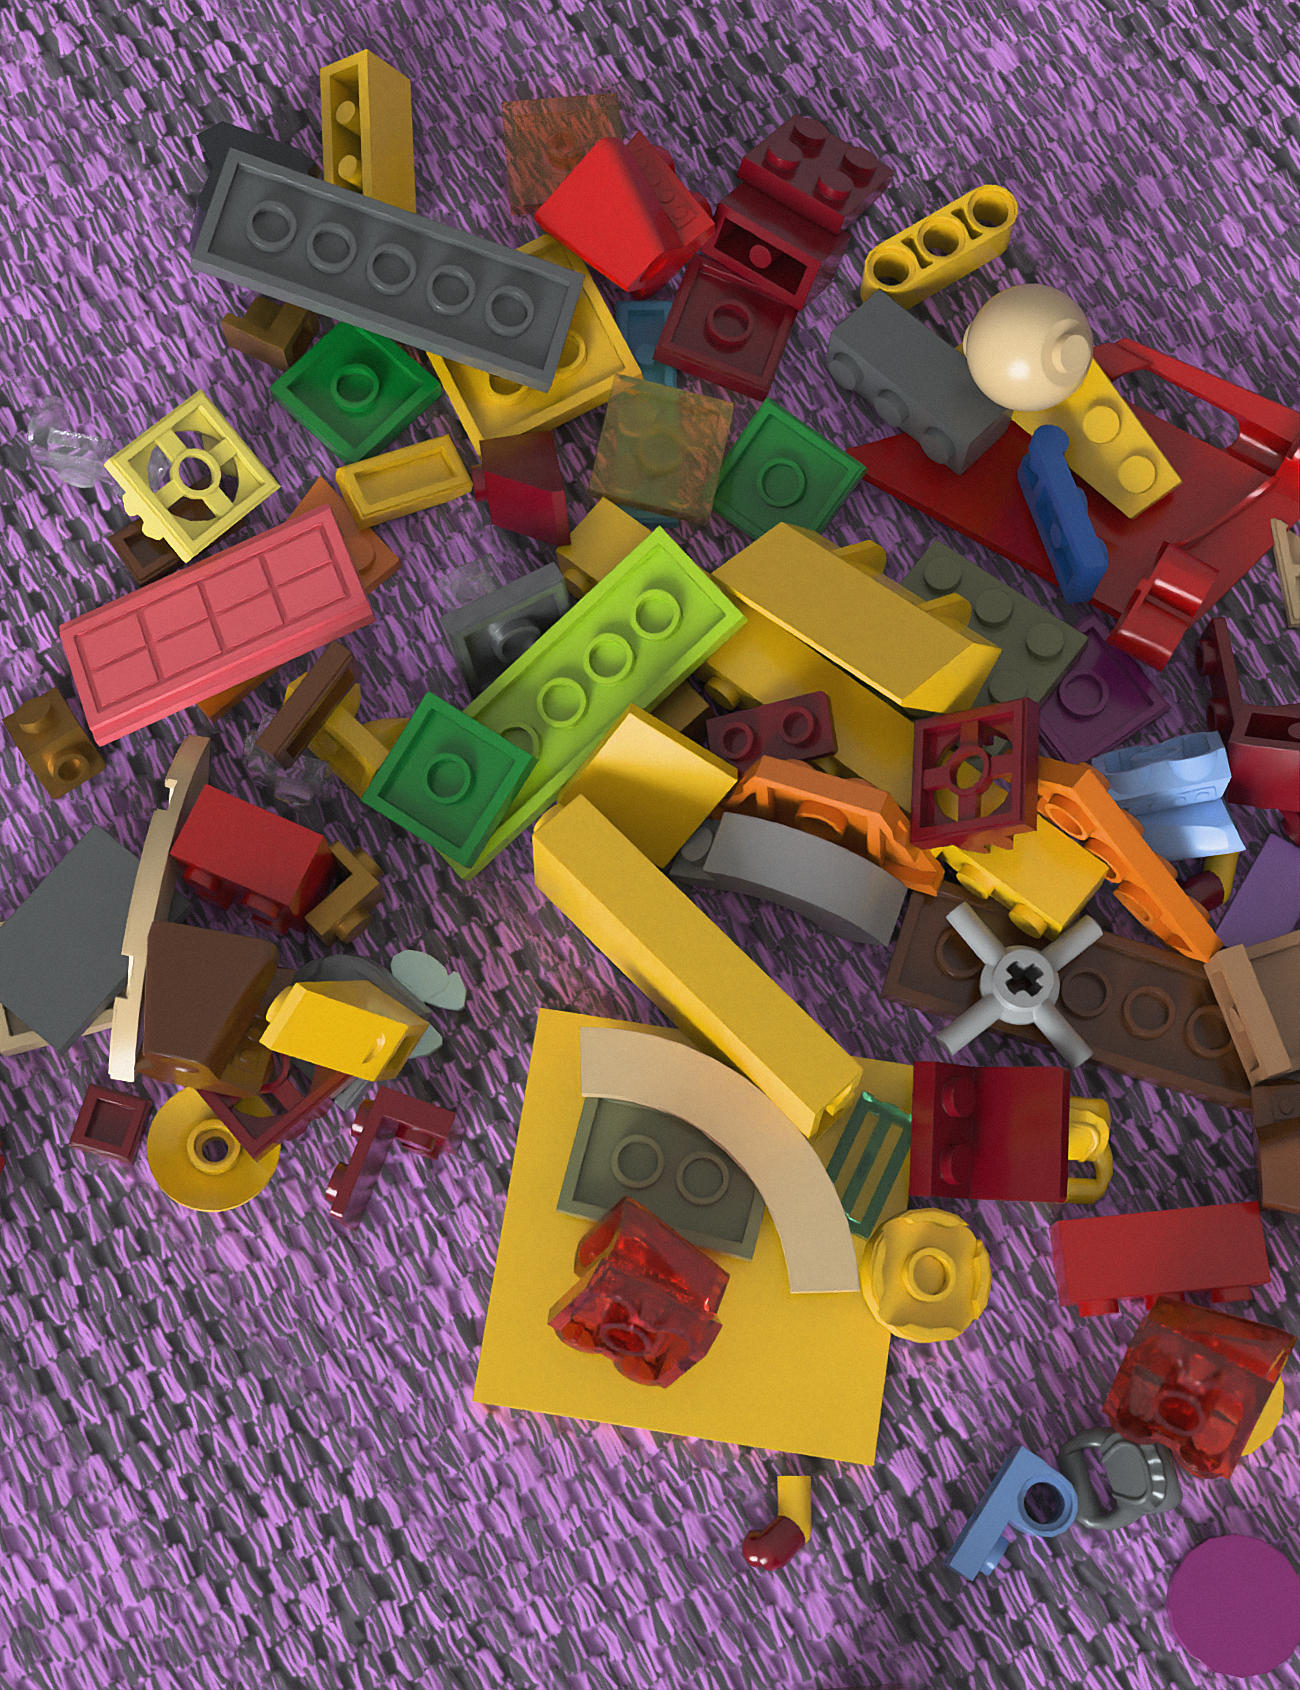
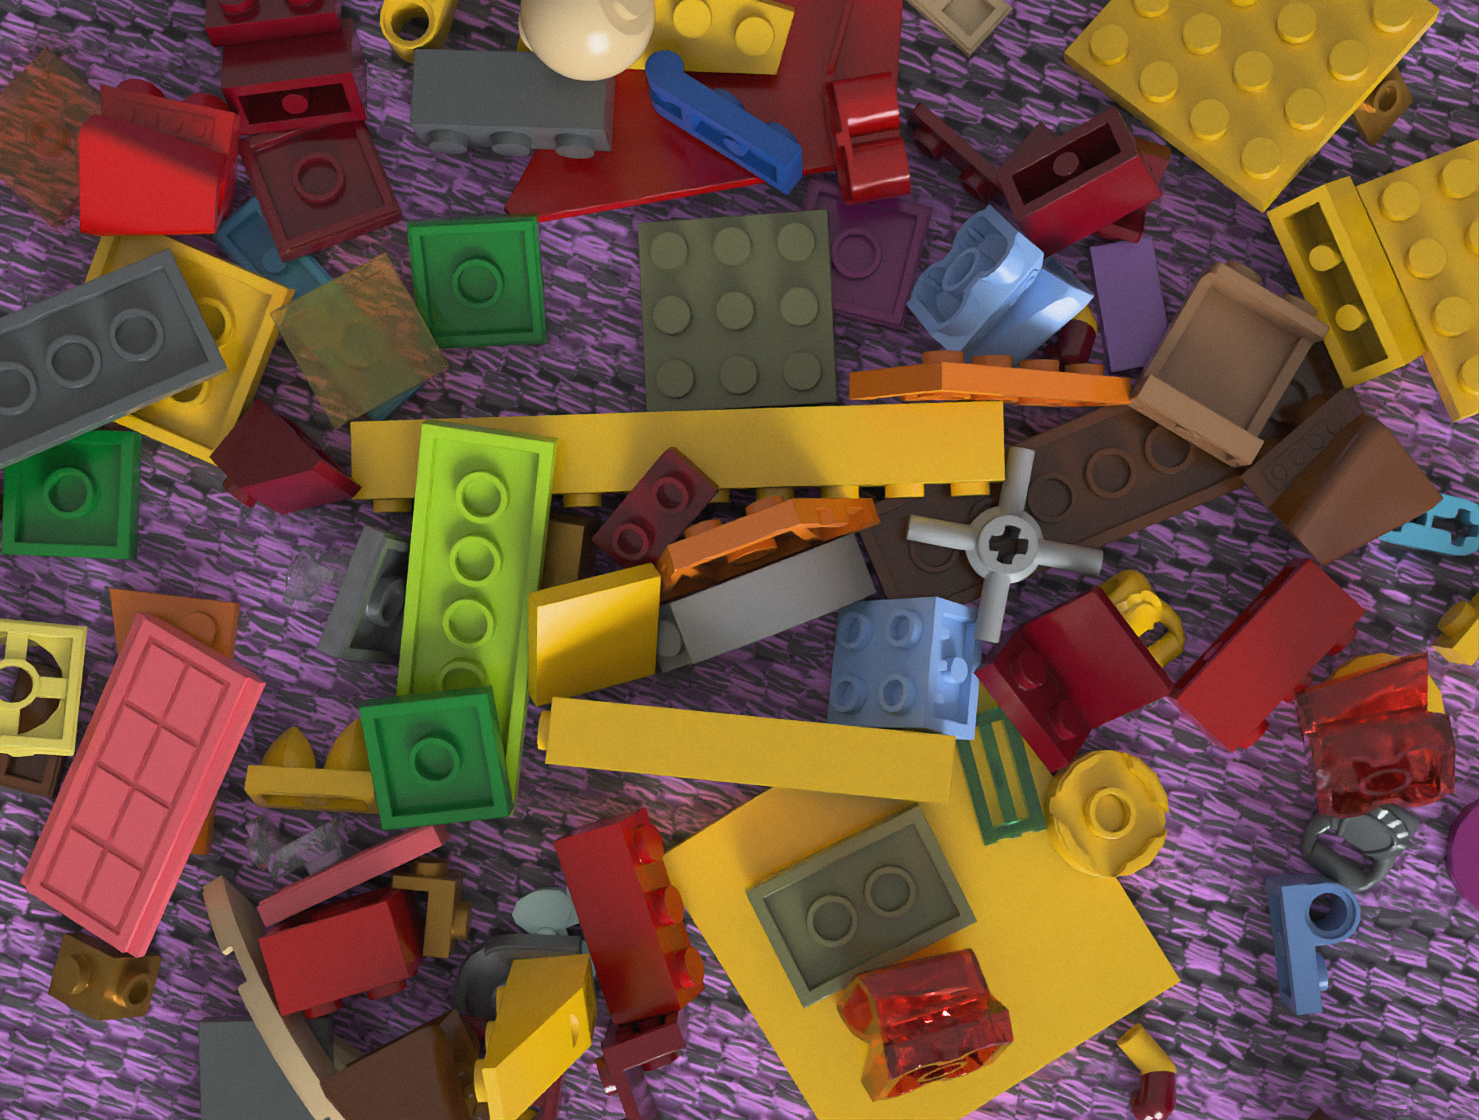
camera: 40 degrees left, 15 degrees up
(310, 706) = (279, 801): reddish brown tile -> none
(350, 828) = (351, 872): none -> coral tile
(403, 481) = (178, 537): yellow tile -> none
(486, 1025) = (630, 916): none -> red brick
(748, 1129) = (891, 832): tan tile -> none
(862, 619) = (645, 361): yellow piece -> none
(878, 1013) = (906, 666): none -> light blue bracket
(935, 736) = (787, 420): dark red piece -> none

